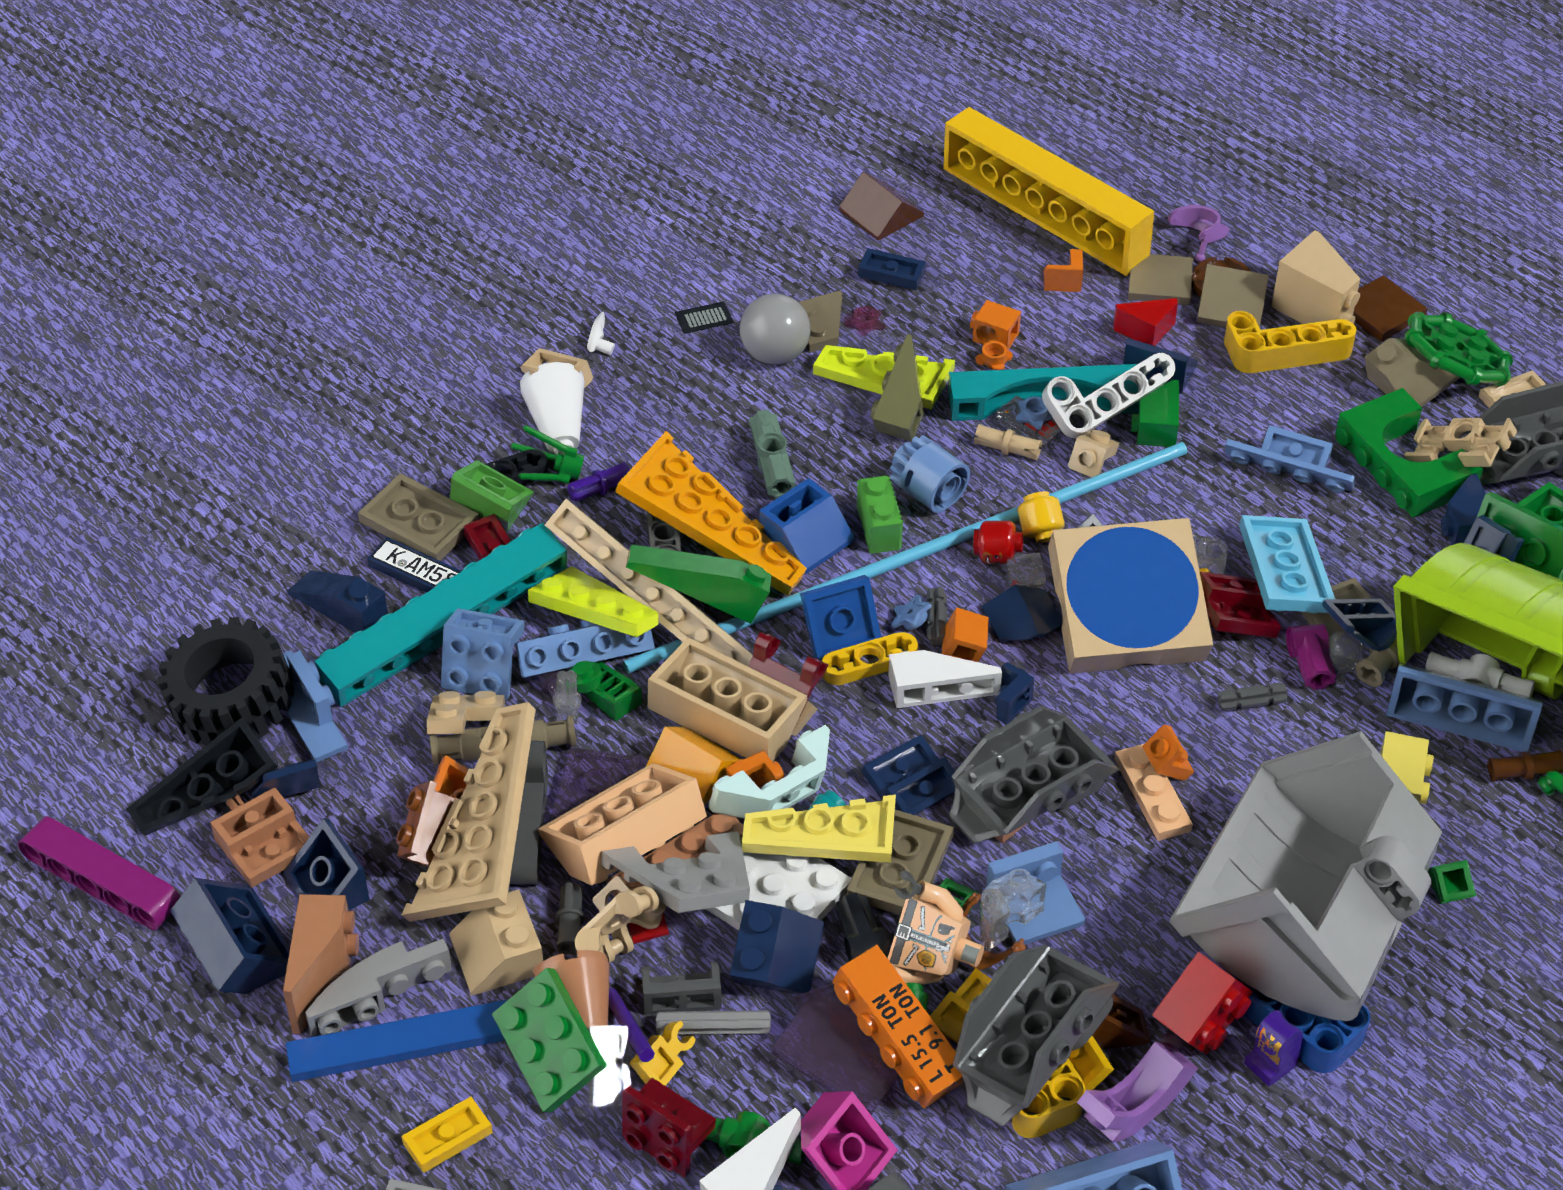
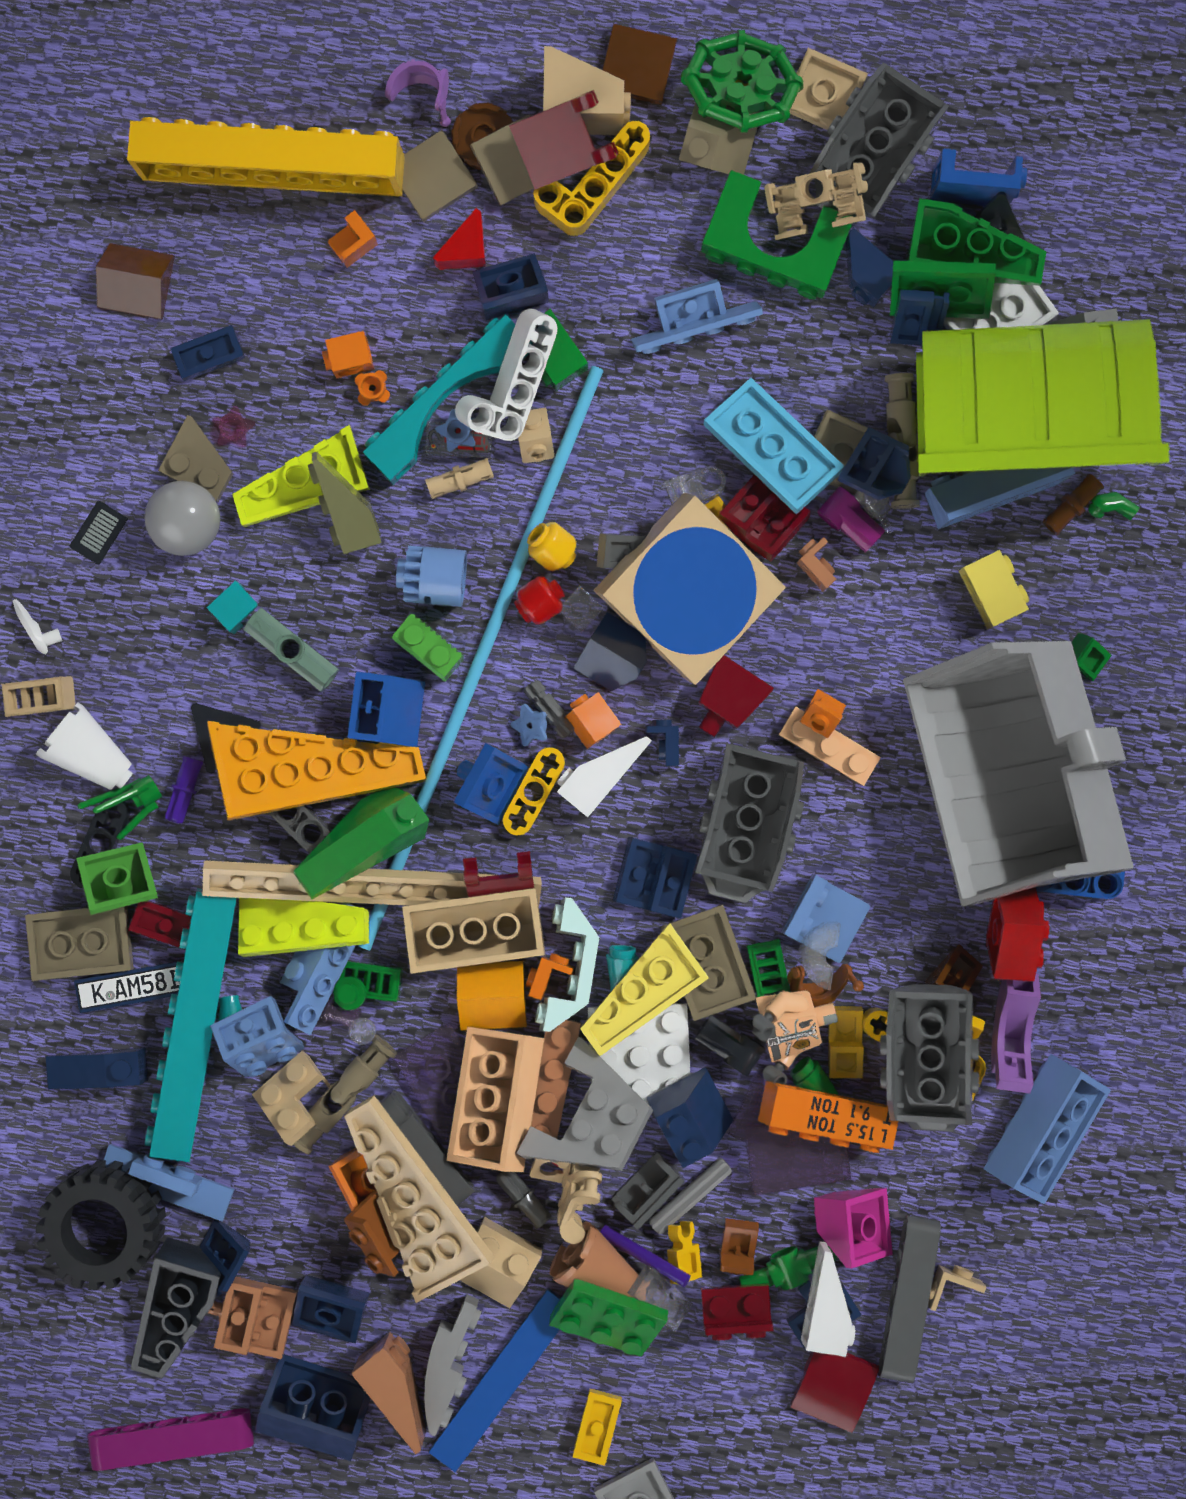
camera: 40 degrees left, 40 degrees up
(719, 1084) = (738, 1246): none -> dark orange bracket
(754, 398) = (233, 607): none -> teal panel
(1099, 697) = (730, 696): none -> dark red torso
(1252, 696) = (835, 596): dark grey axle -> none
(1254, 658) = (817, 569): none -> nougat bracket
(1275, 1048) = (1076, 917): dark purple leg -> none
(1278, 286) = (558, 142): none -> dark red flag

